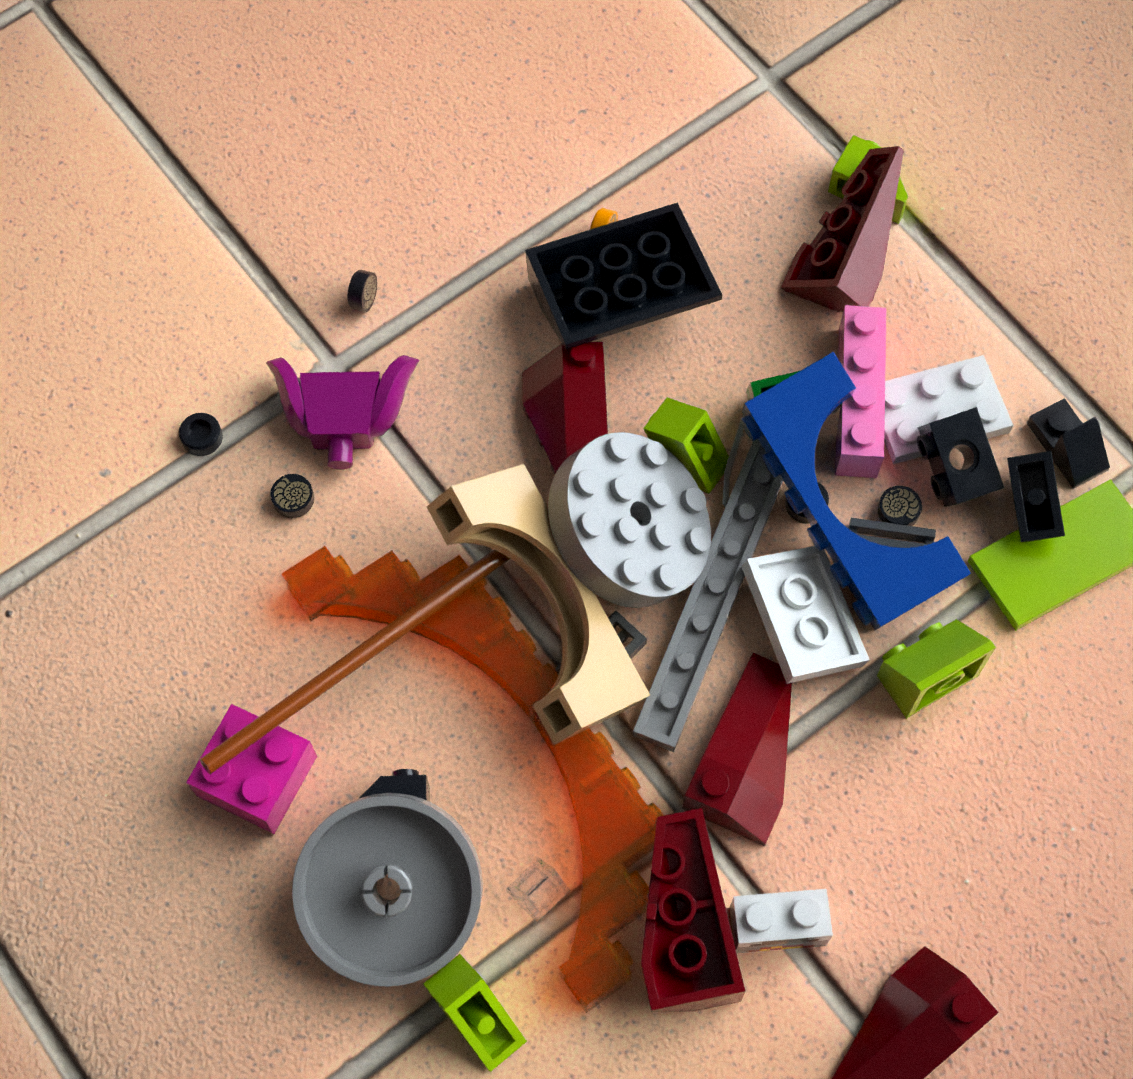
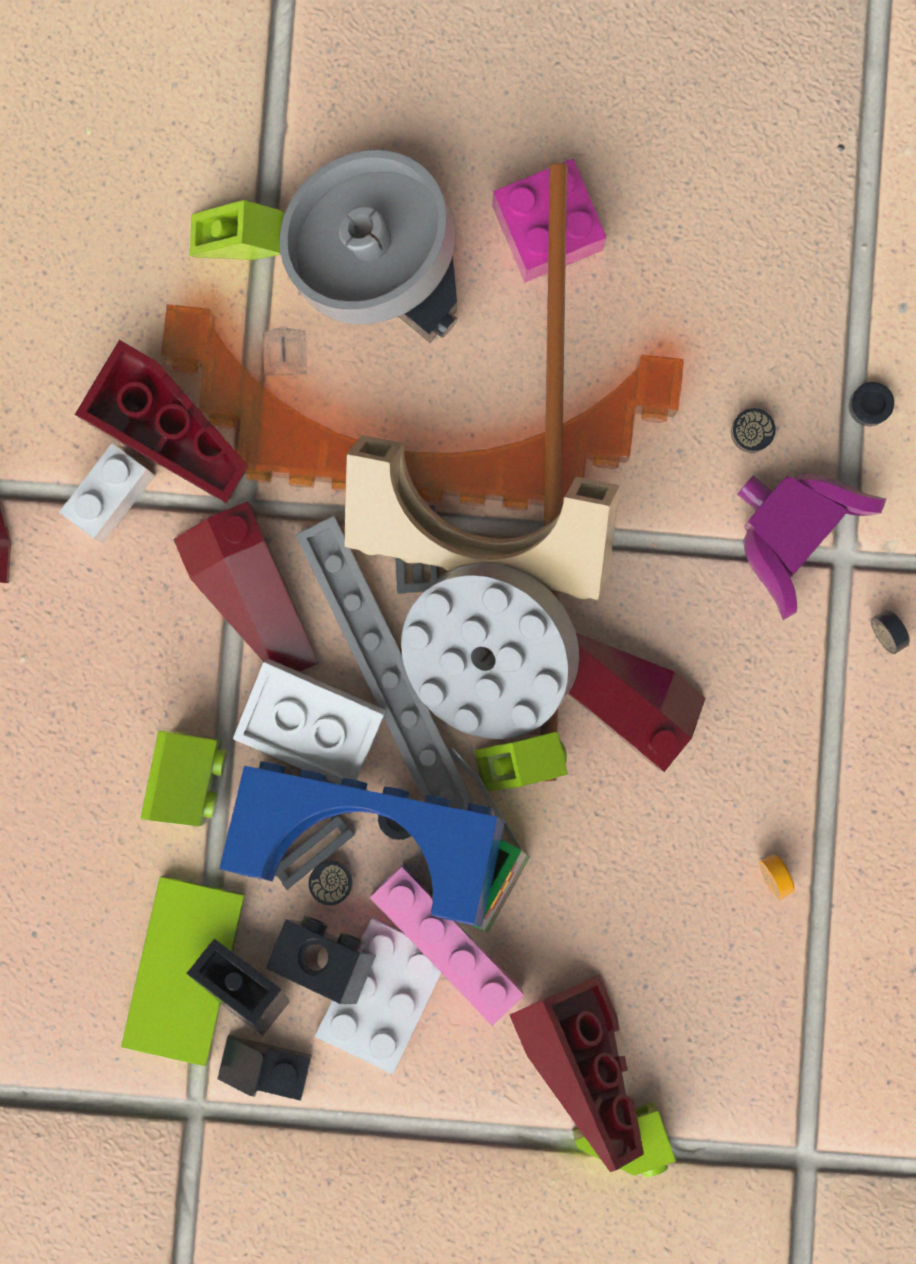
camera: 130 degrees right, 20 degrees up
(620, 276) = (707, 839): black slope -> none

